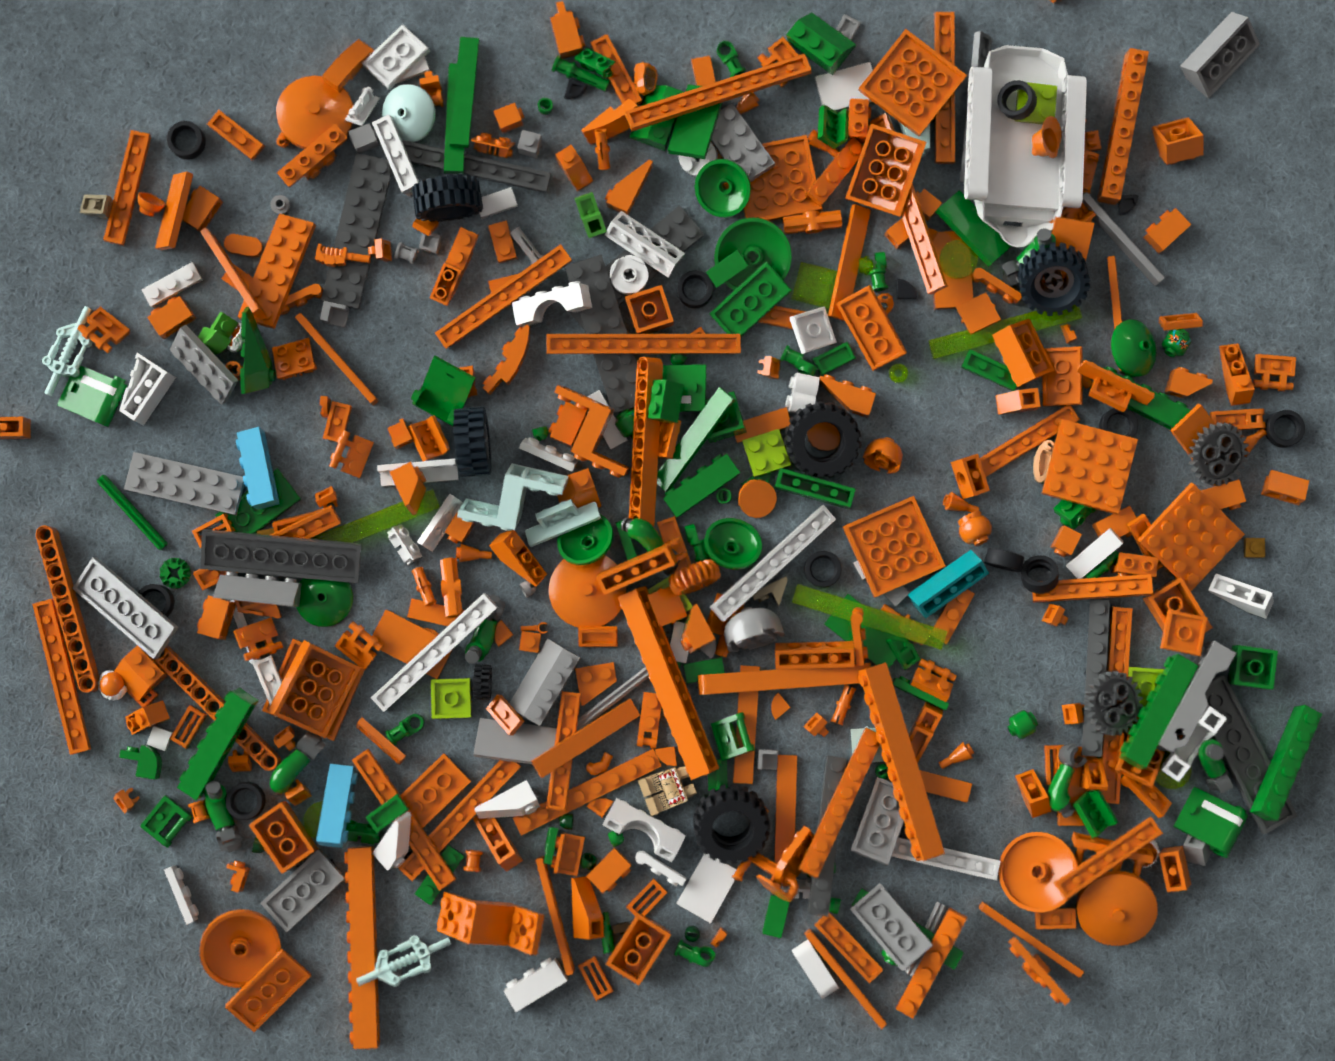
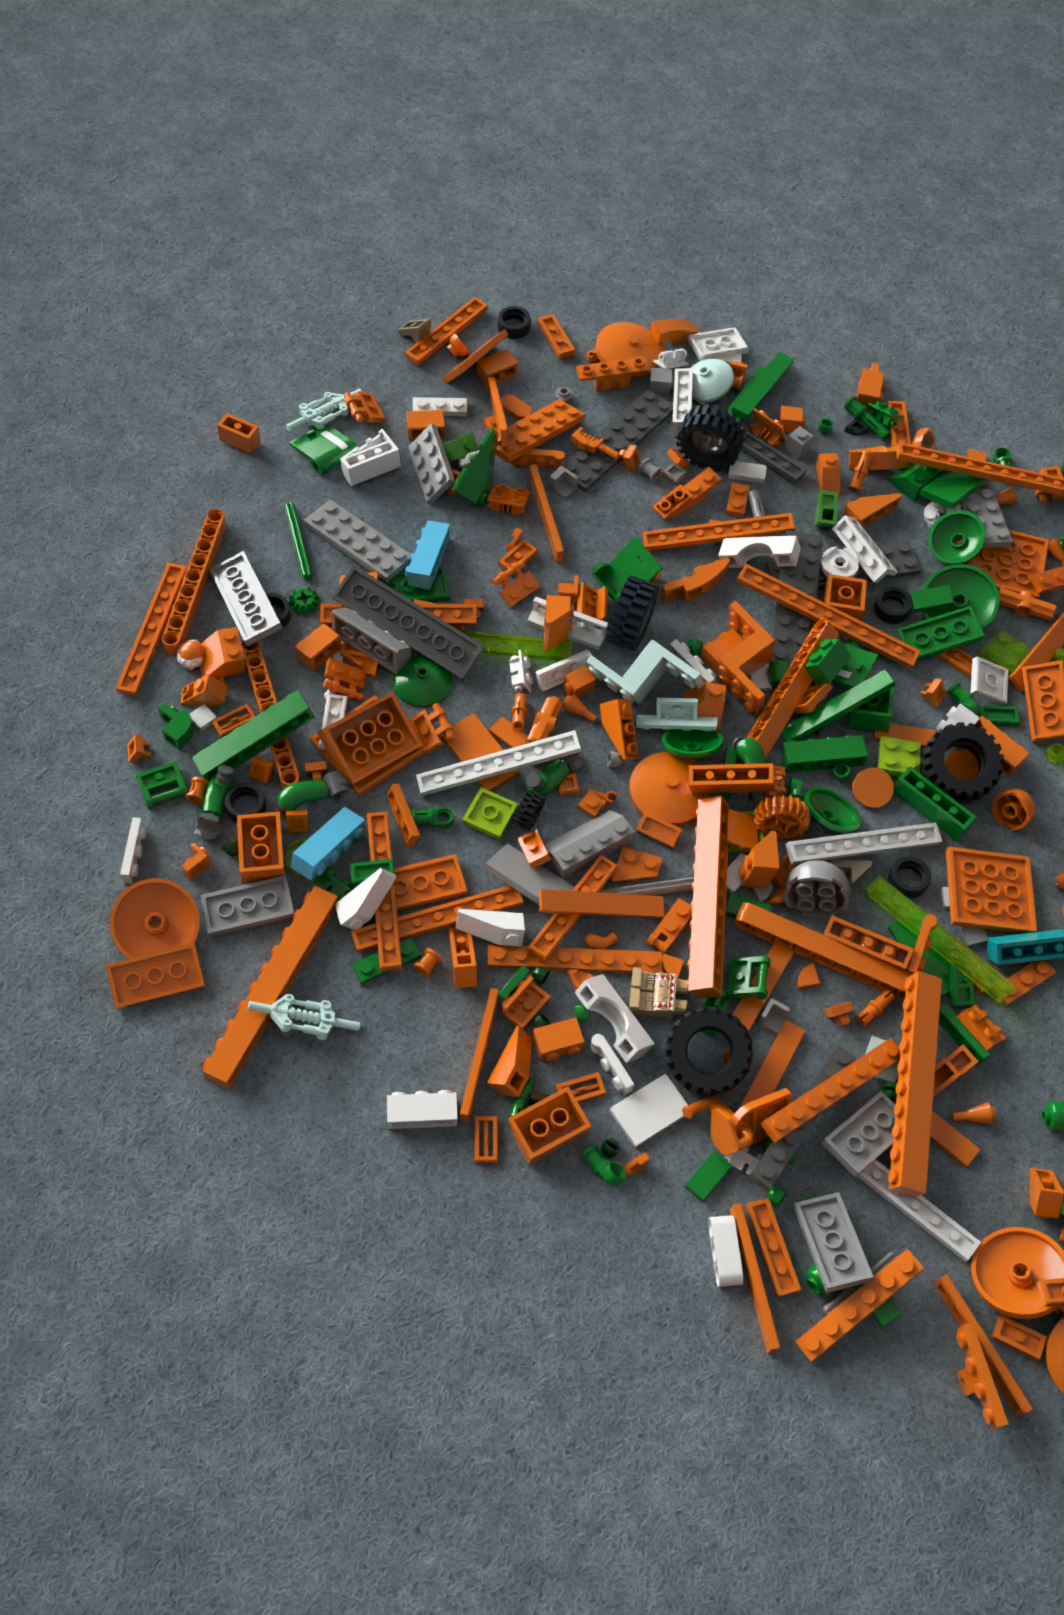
camera: 20 degrees right, 25 degrees down
(490, 923) = (413, 1020): orange bracket -> none

